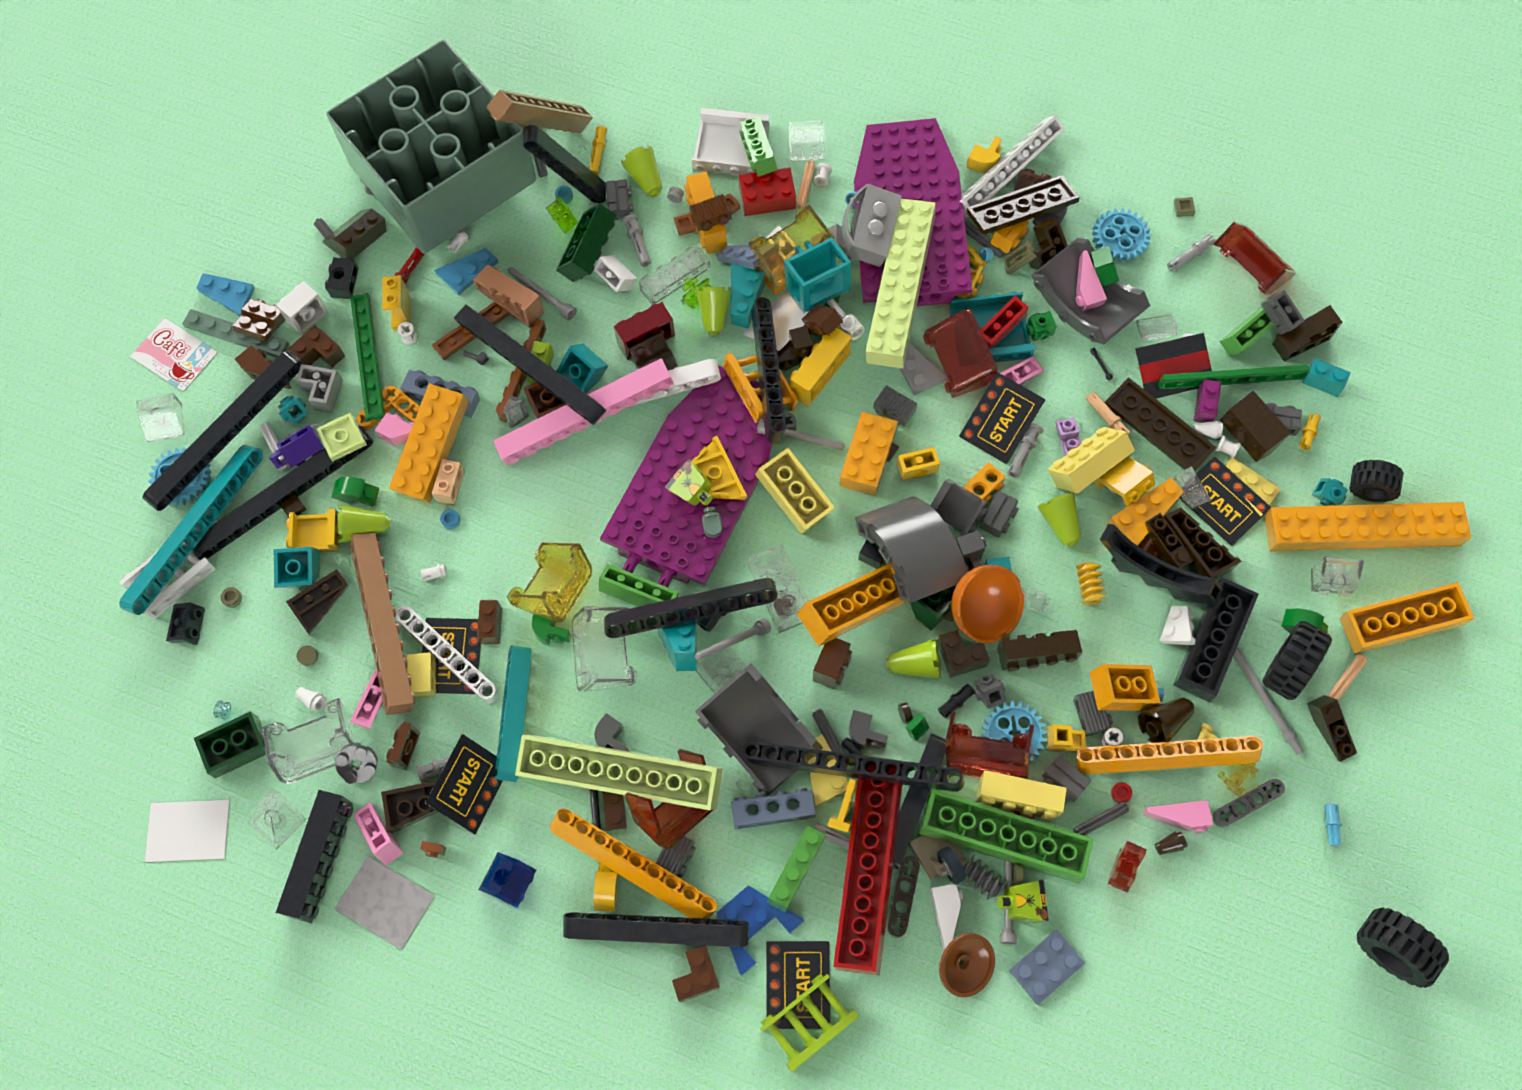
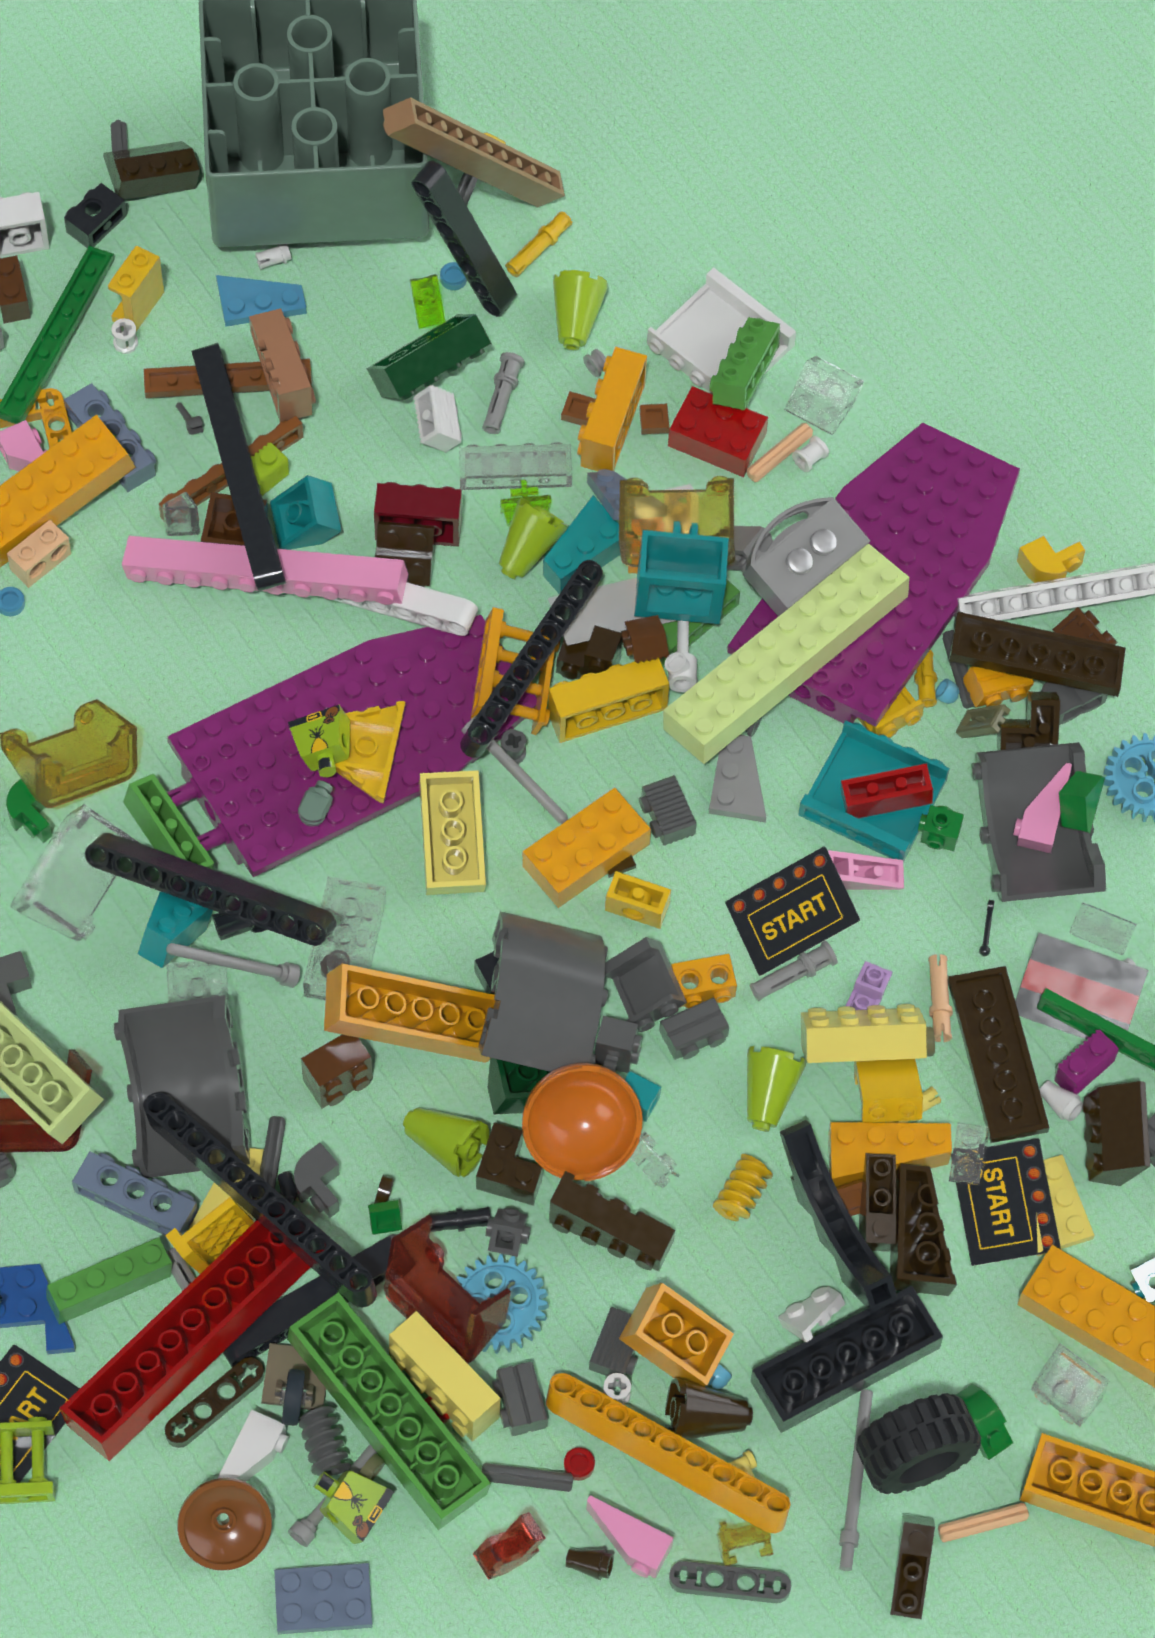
camera: 30 degrees right, 5 degrees down
(416, 256) = (207, 246): red pin -> none
(567, 310) = (344, 429): light grey piece -> none
(618, 198) = (517, 324): dark grey brick -> none
(710, 213) = (606, 413): reddish brown brick -> none
(962, 353) = (801, 795): clear red windscreen -> none
(1063, 738) = (550, 1348): yellow brick -> none
(1228, 446) = (1066, 1138): white bush -> none

